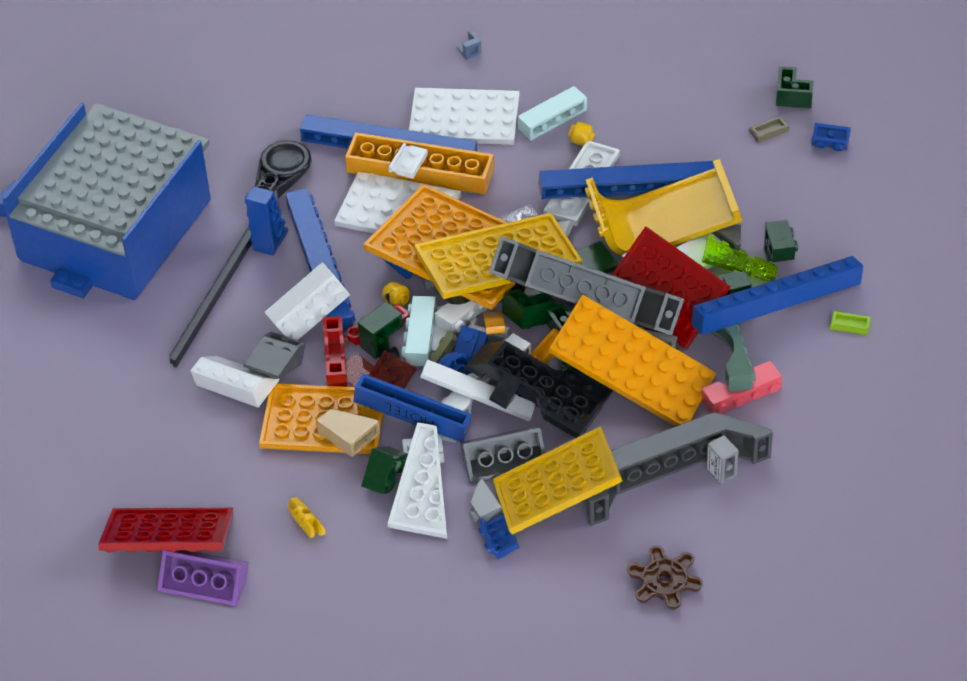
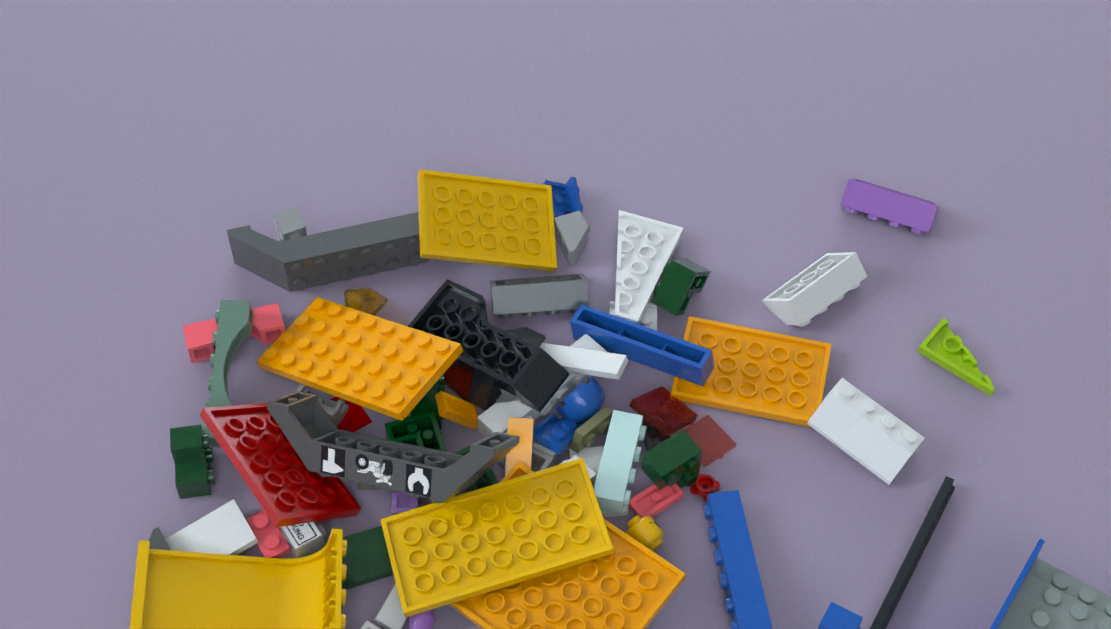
camera: 175 degrees left, 5 degrees up
(162, 454) = (950, 353): none -> lime wing
(166, 529) = (936, 239): red plate -> none
(271, 490) = (816, 288): none -> white slope
(275, 355) = (814, 440): slope -> none
(305, 518) = (777, 252): yellow hinge -> none
(307, 302) = (768, 499): white brick -> none
(334, 351) = (732, 442): red arch -> none
(348, 430) = (723, 329): tan slope -> none
(646, 422) = (364, 300): none -> clear yellow slope
(663, 566) = (398, 127): reddish brown plate -> none
(723, 256) = (175, 513): clear neon green wing -> none
(776, 295) = (134, 428): blue brick -> none
(779, 241) = (100, 514): brick -> none
(850, 323) = (61, 411): lime tile -> none

